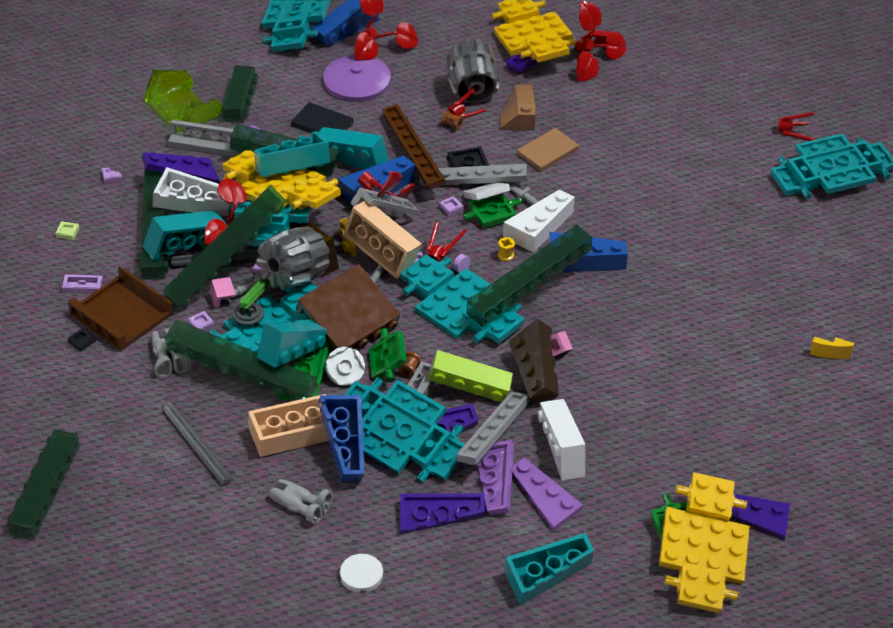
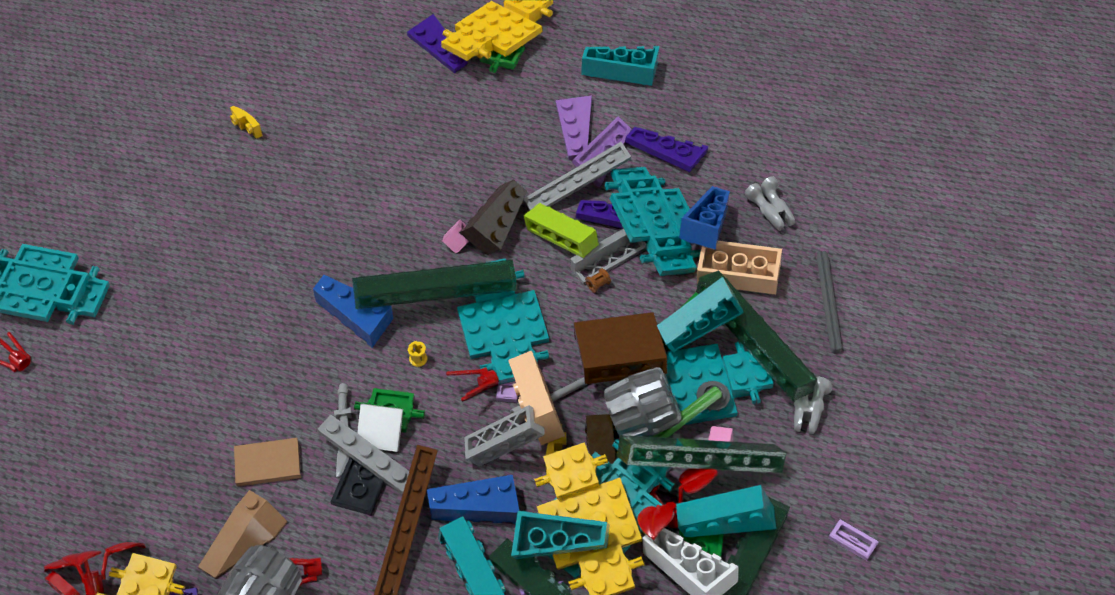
camera: 145 degrees left, 10 degrees up
(43, 484) = (983, 320): clear green brick -> none
(81, 339) = (884, 467): black tile -> none
(122, 310) = (832, 481): reddish brown panel -> none
(201, 321) = (757, 428): lavender tile -> none
(345, 366) = (657, 301): white tile -> none
(361, 573) = (759, 132): white tile -> none
(368, 182) = (491, 422): red plant -> none
(387, 355) = (614, 289): green plate -> none
(446, 120) = (329, 553): dark orange bush -> none
(451, 206) = (422, 438): lavender tile -> none
(461, 262) = (470, 360): lavender tile -> none
(533, 224) = (358, 366): white wedge -> none
(563, 438) = (527, 148): white wedge -> none

